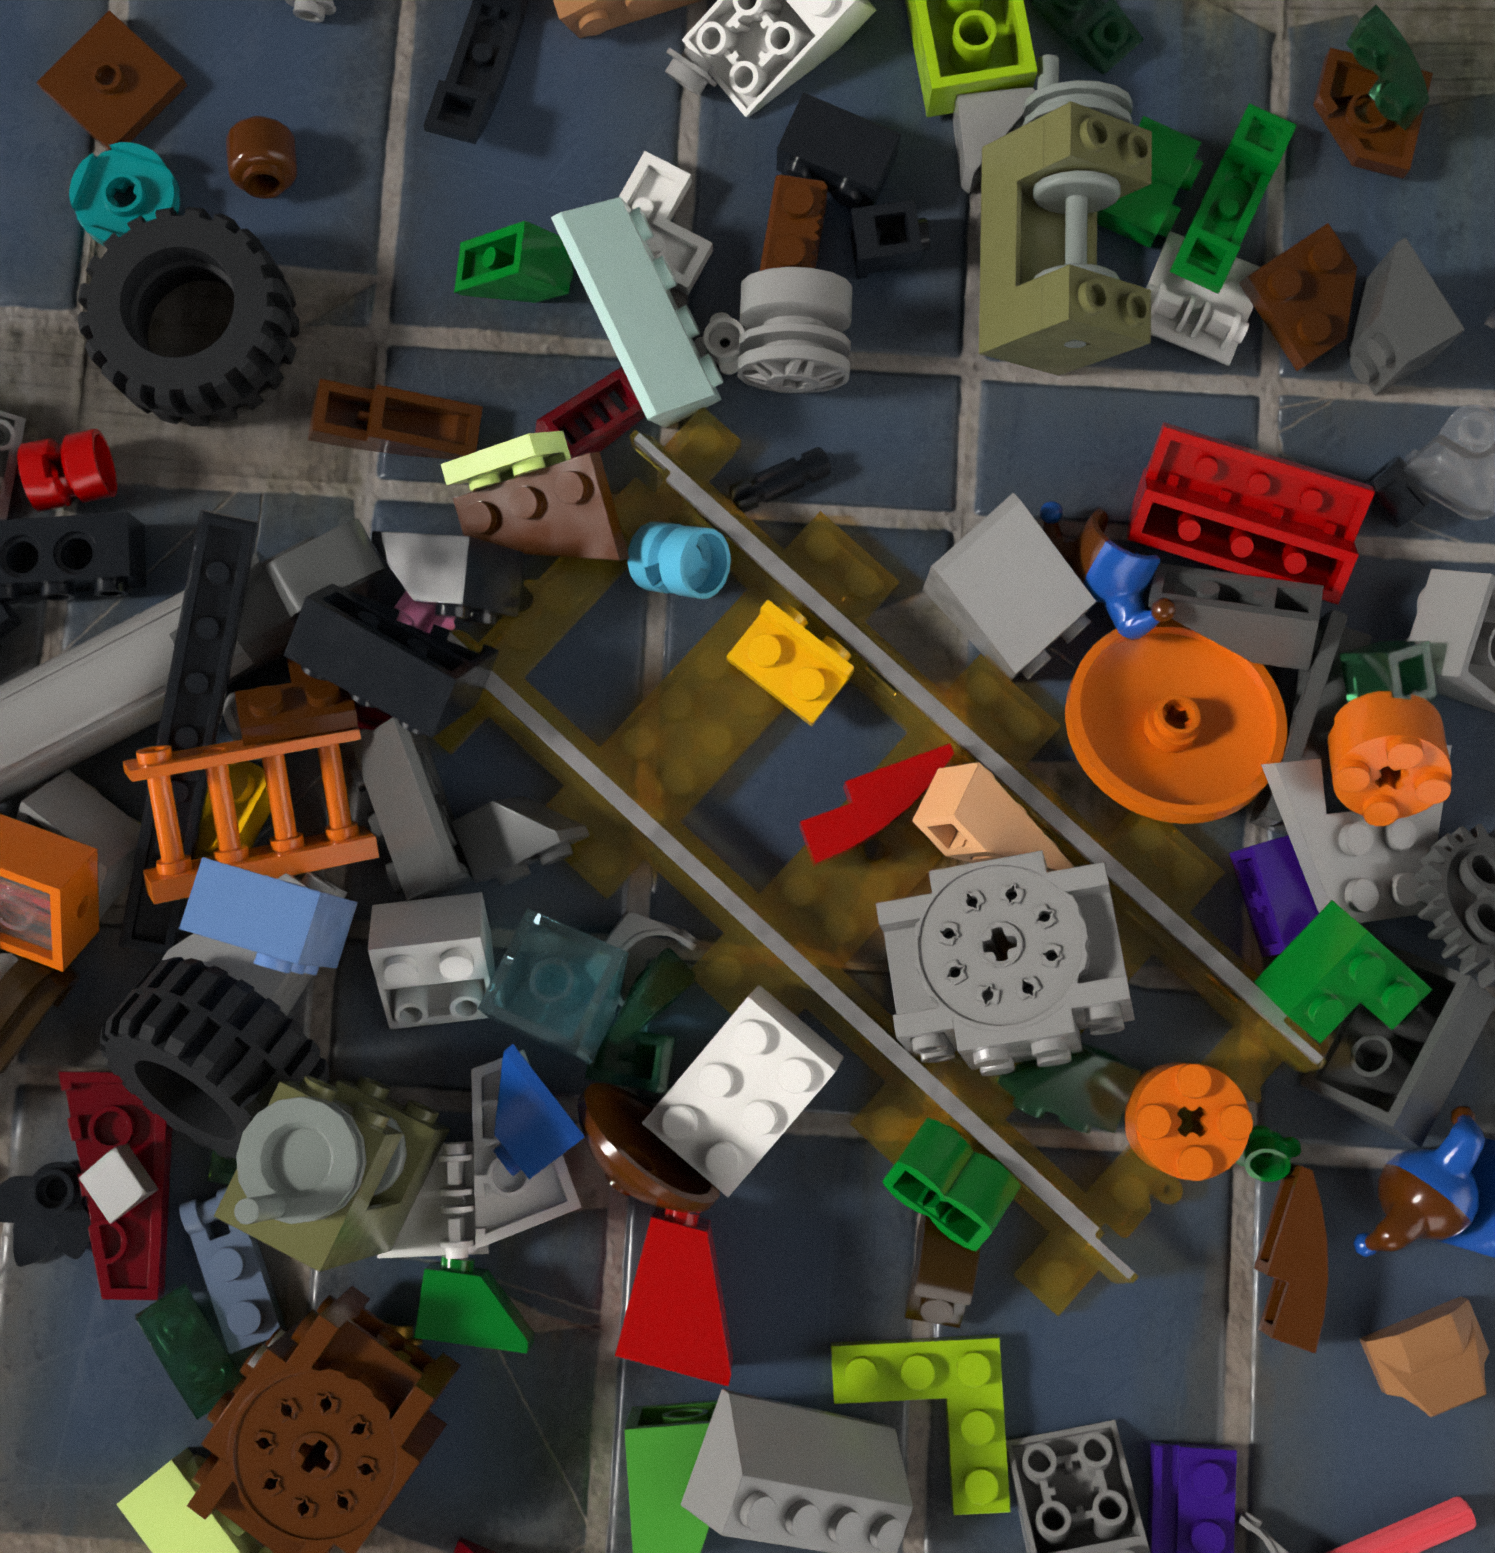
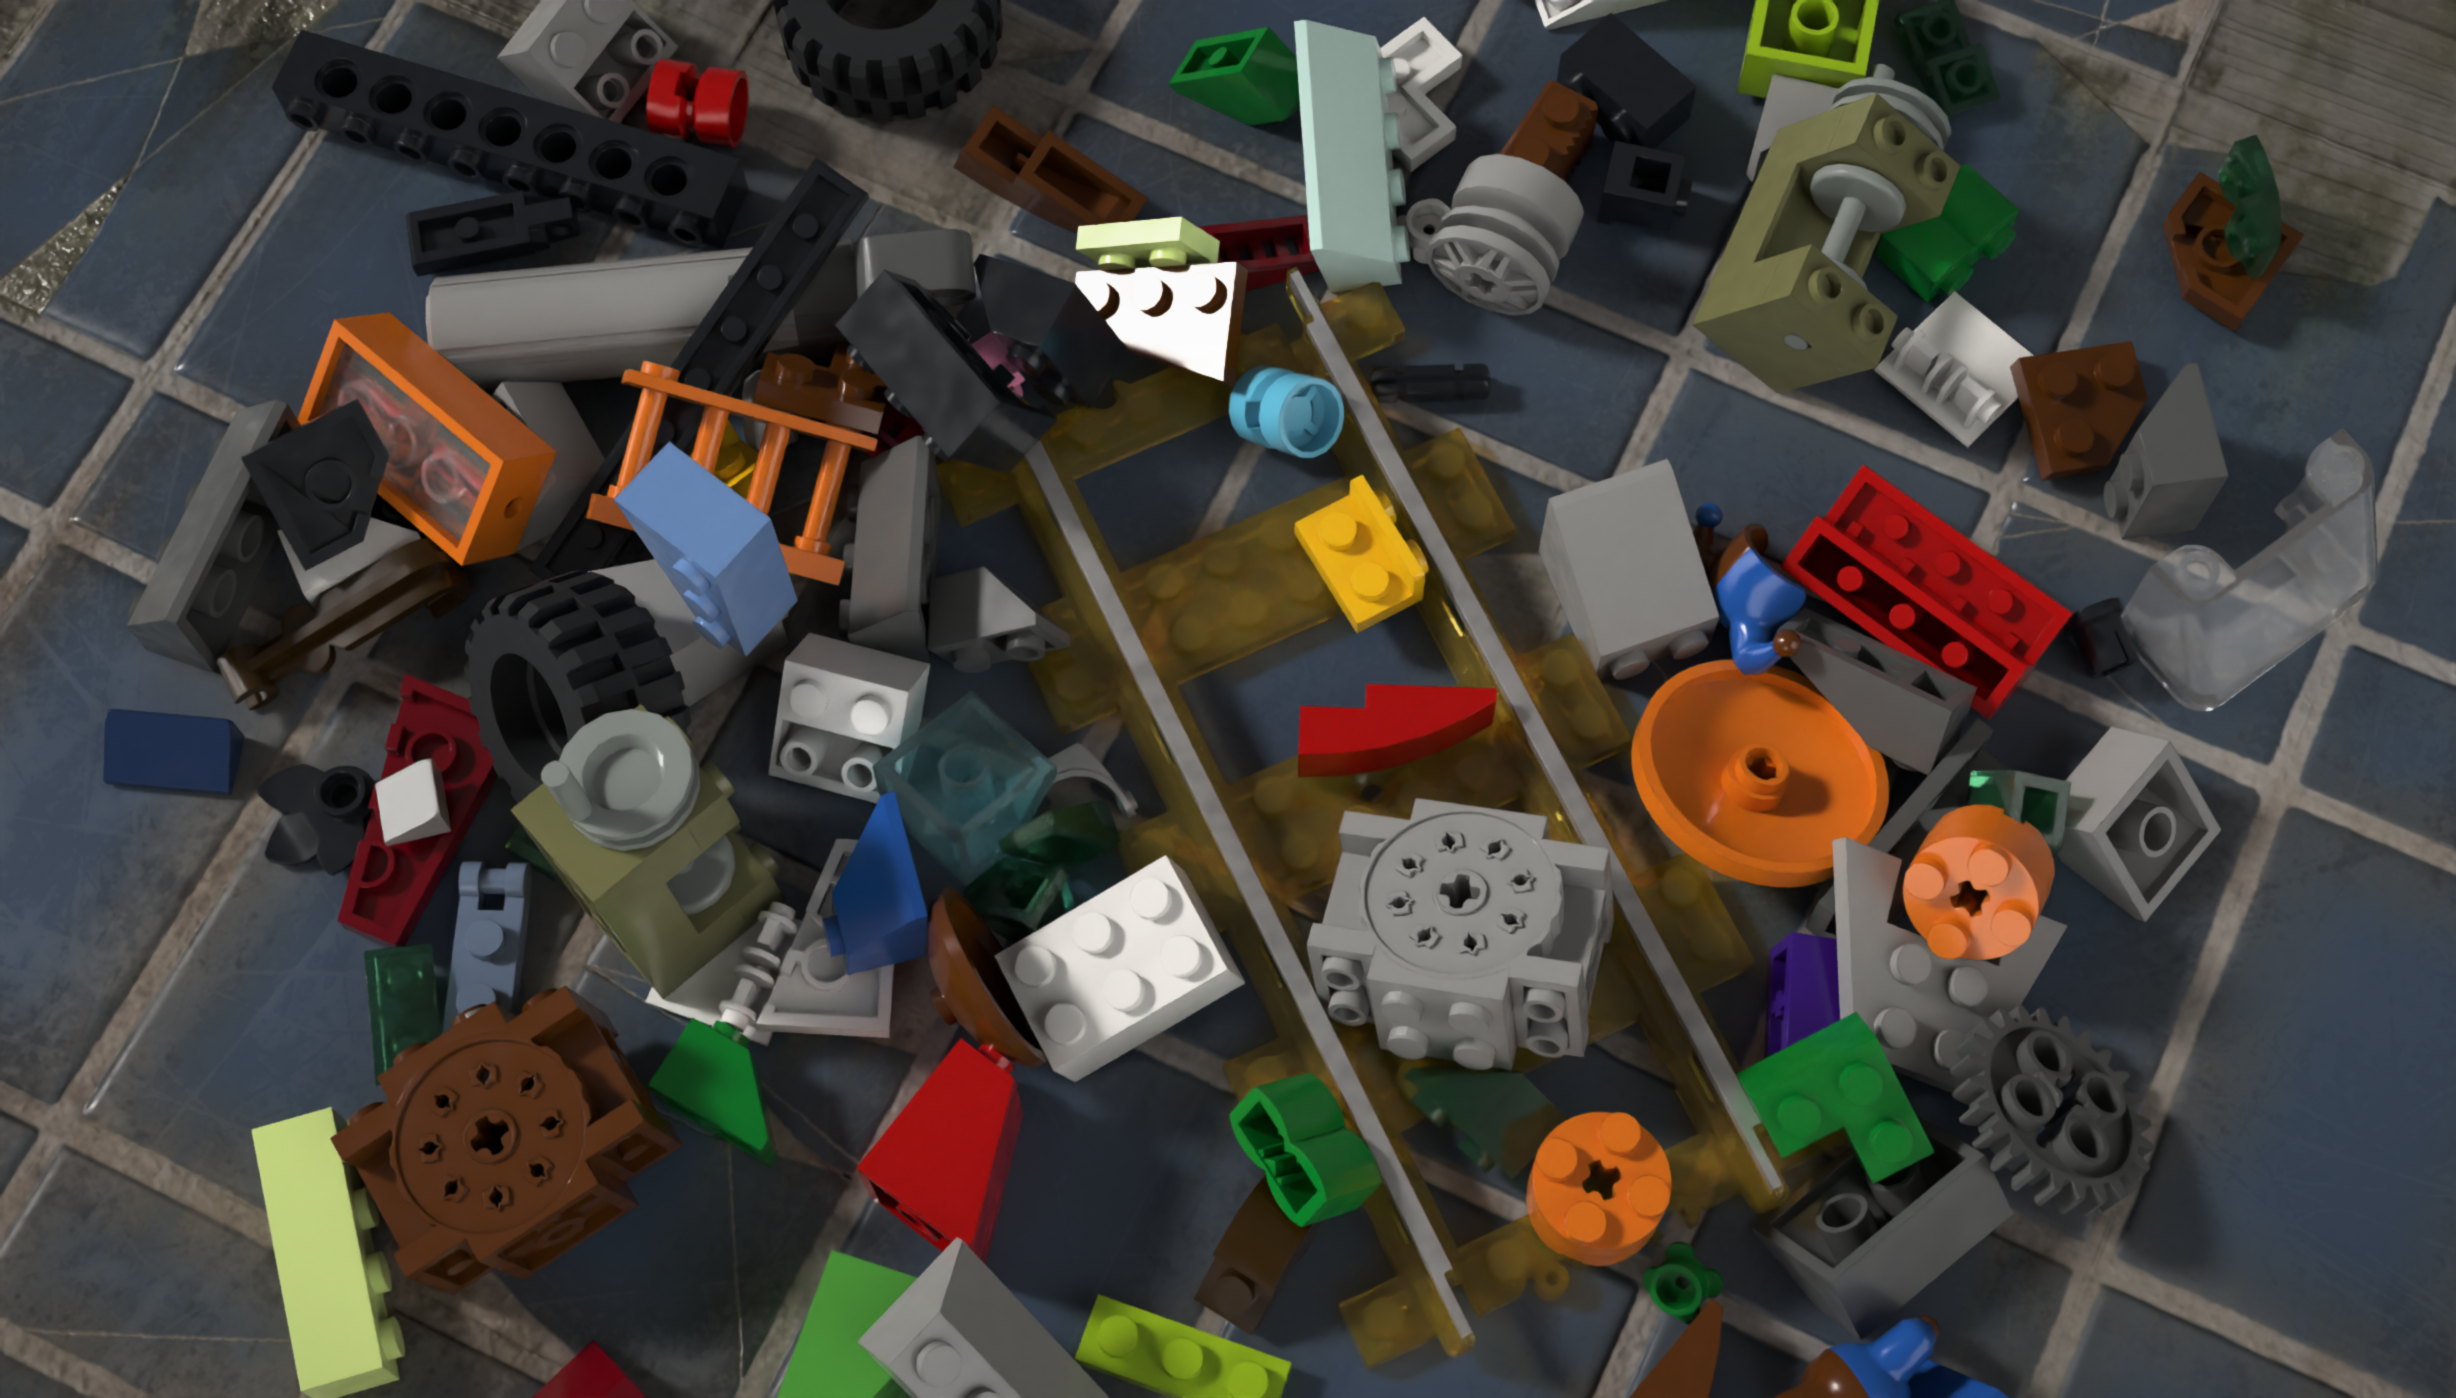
camera: 20 degrees right, 15 degrees down
(978, 820) = (1491, 764): light nougat slope -> none
(1232, 198) = (2036, 283): green slope -> none

